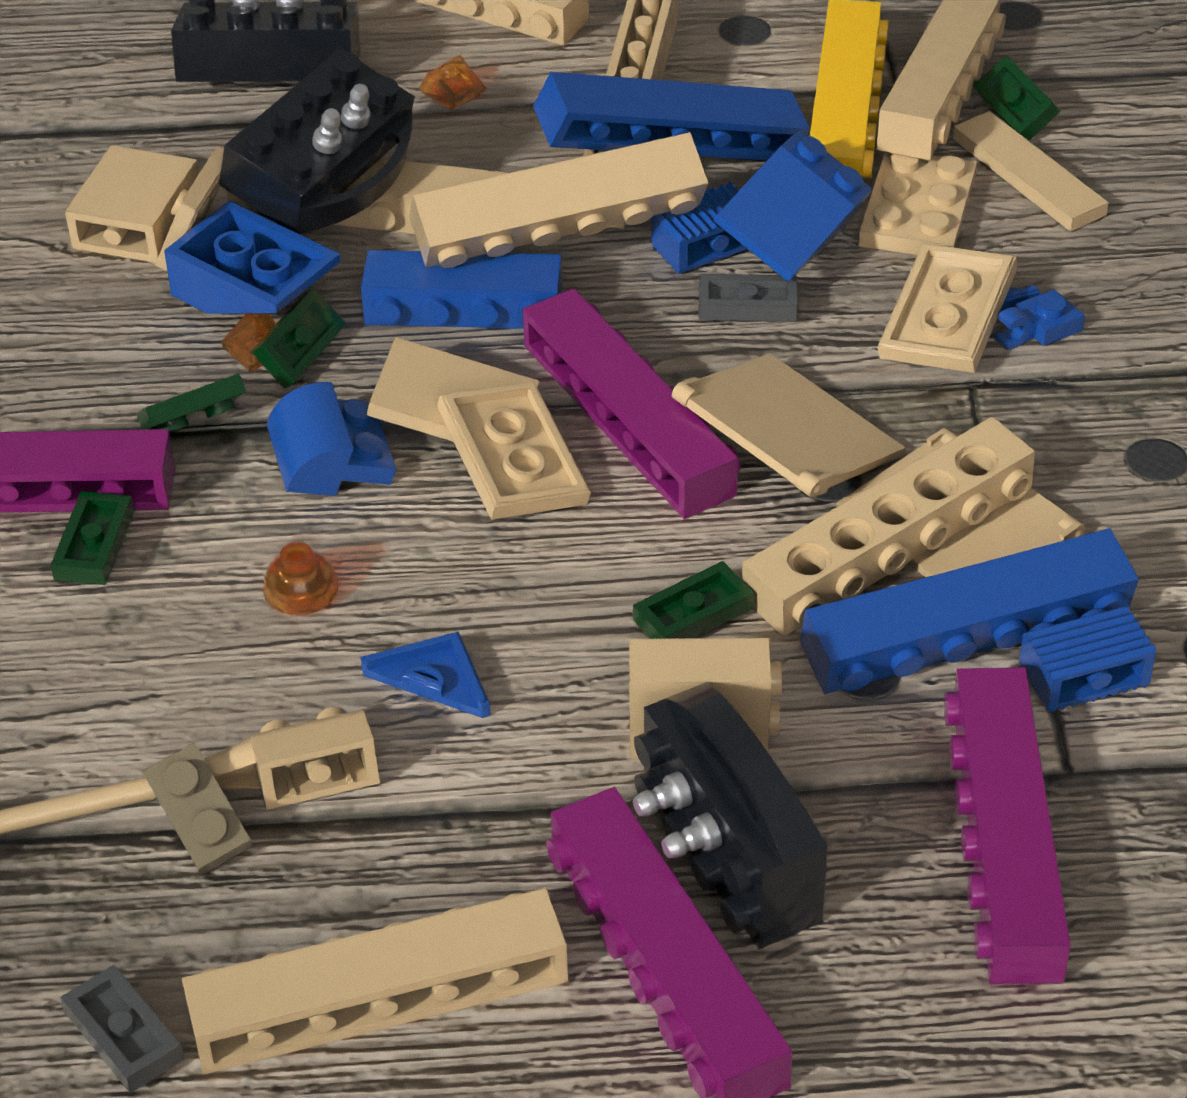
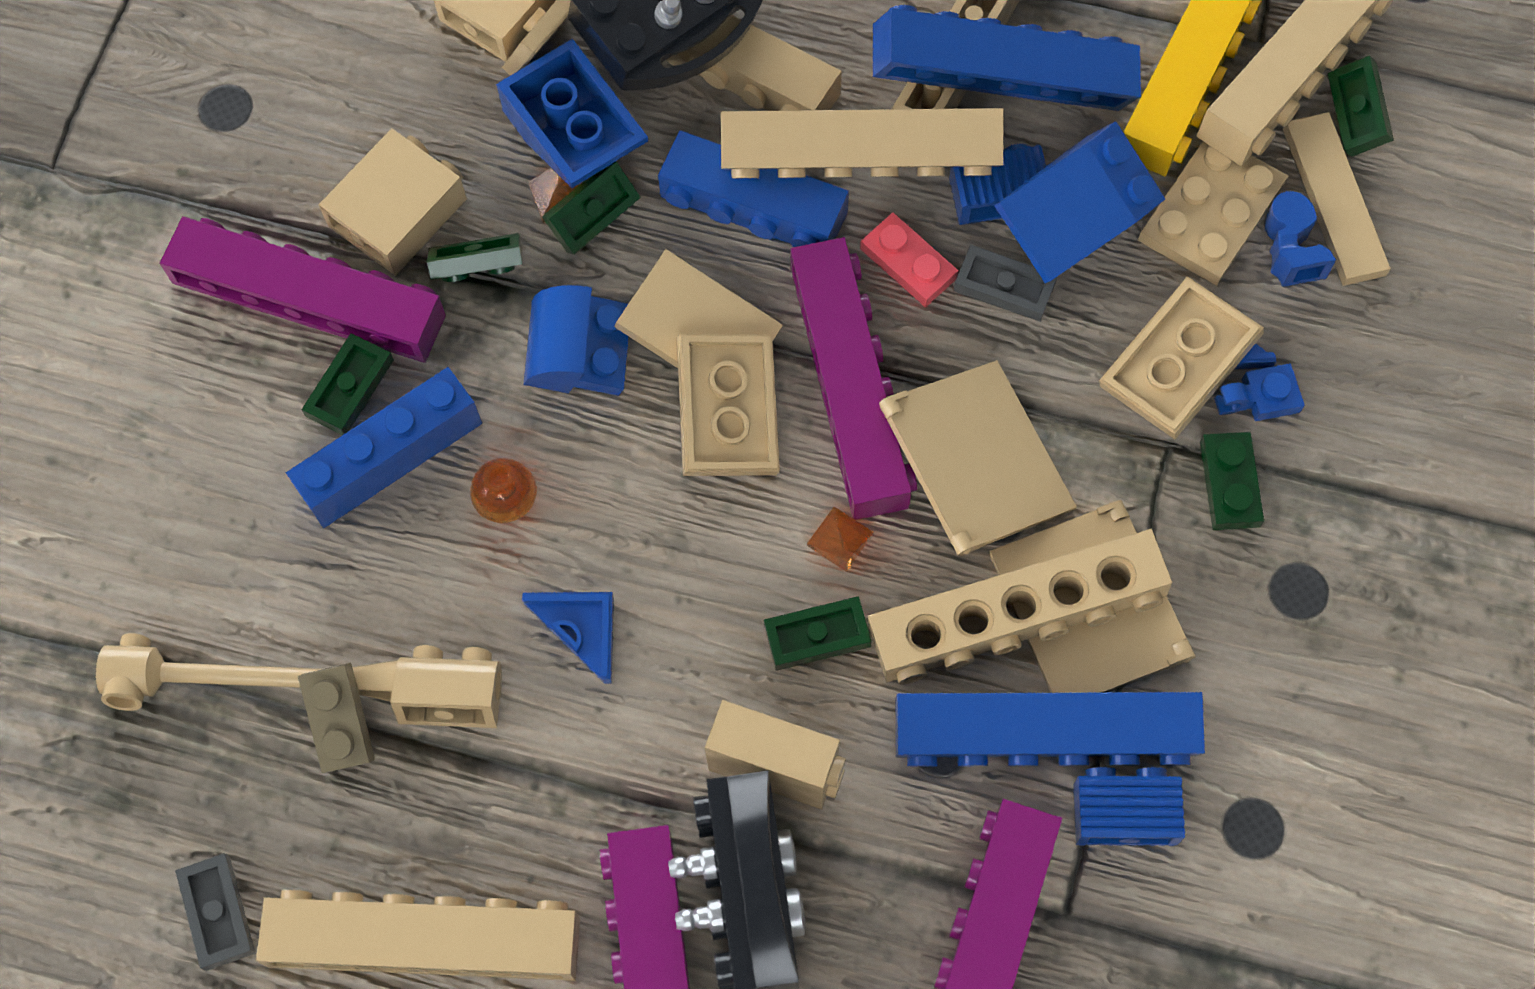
camera: 20 degrees right, 25 degrees up
(83, 378) = (394, 200): none -> tan brick
(156, 573) = (385, 447): none -> blue brick
(644, 307) = (909, 259): none -> coral plate
(678, 533) = (840, 538): none -> clear orange slope
(1012, 216) = (1289, 225): none -> blue leg
(1046, 391) = (1231, 481): none -> dark green plate

